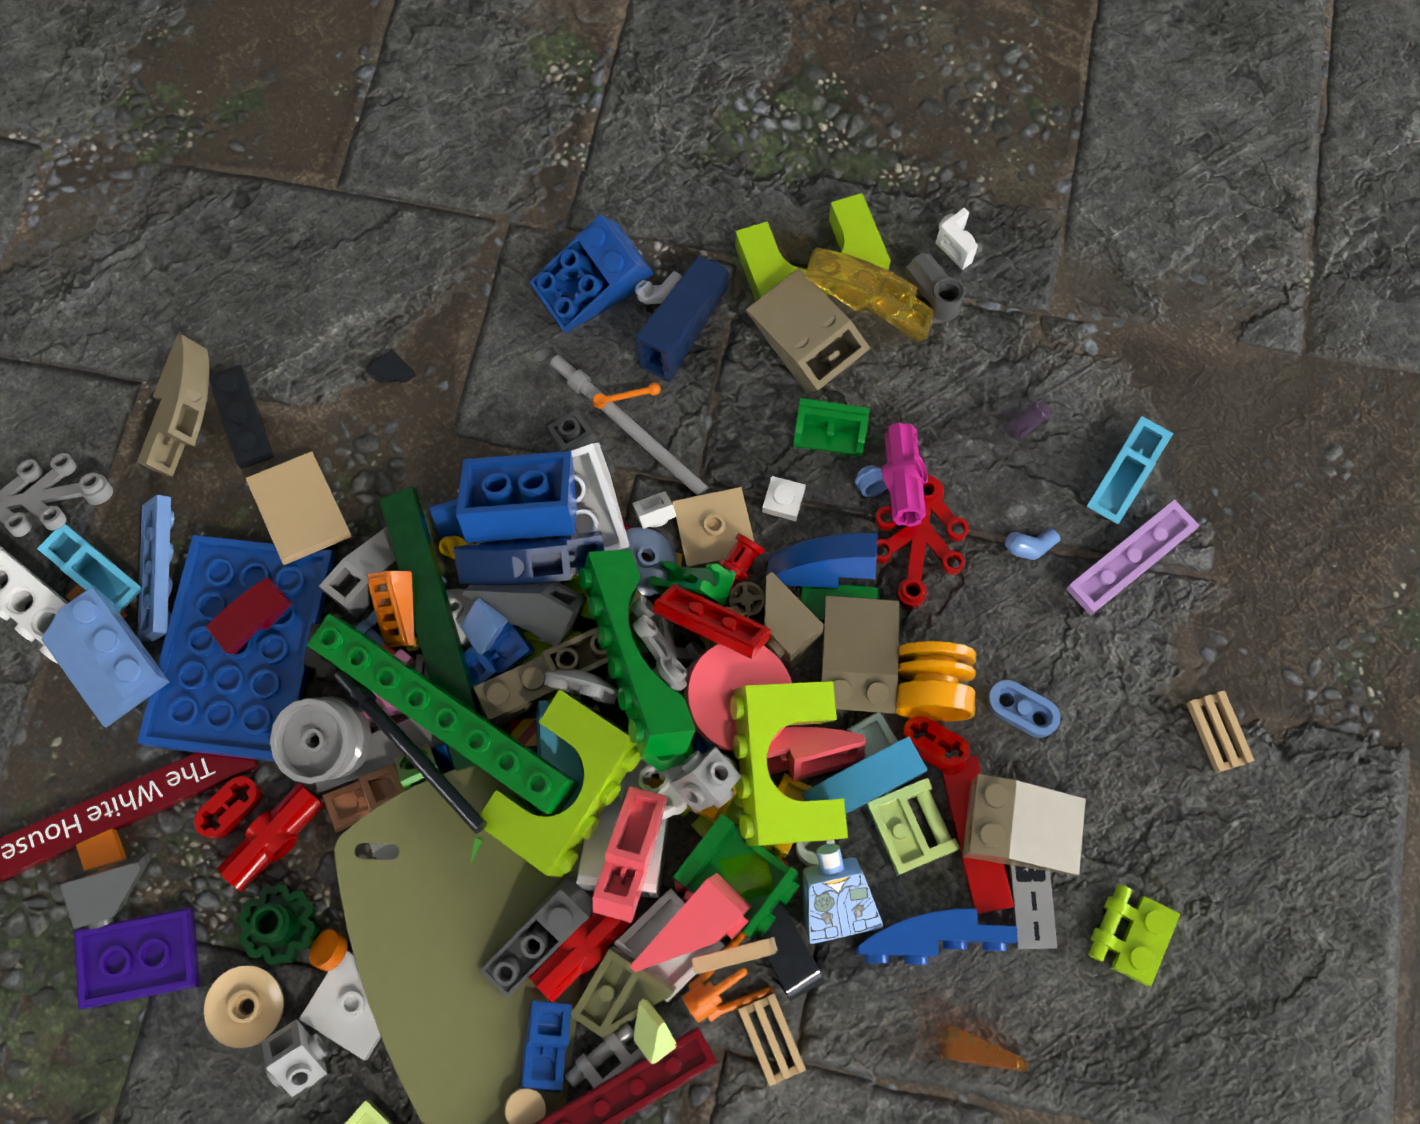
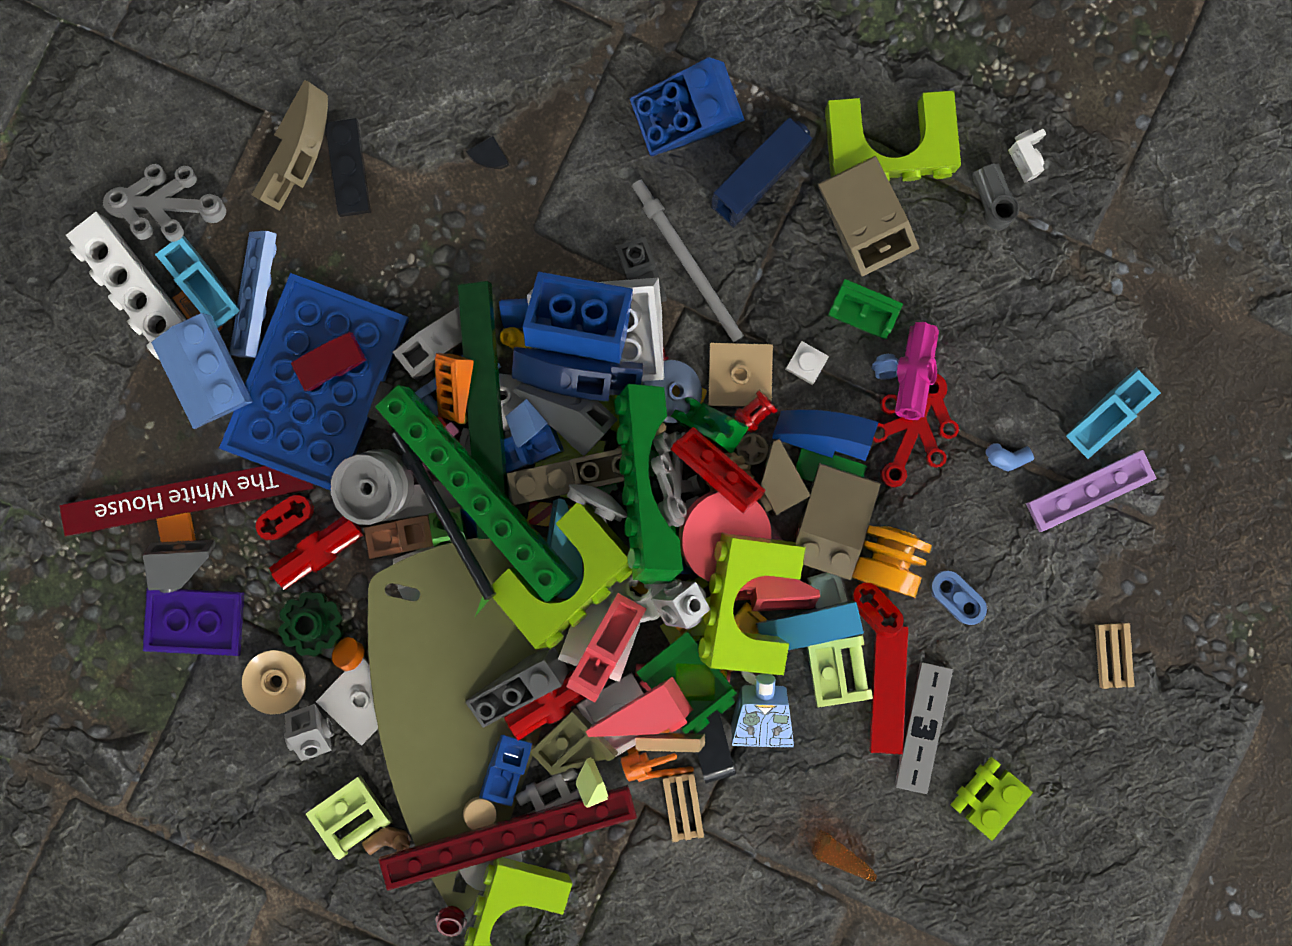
camera: 10 degrees right, 15 degrees up
(298, 508) = (385, 269): tan tile -> none
(600, 400) = (668, 234): orange hinge -> none
(654, 510) = (692, 347): white plate -> none
(656, 294) = (745, 140): white arm -> none
(871, 287) = (935, 190): clear yellow slope -> none
(919, 937) = (820, 758): blue slope -> none
(1024, 825) = (929, 695): slope -> none
(1029, 419) = (1040, 344): clear purple pin -> none

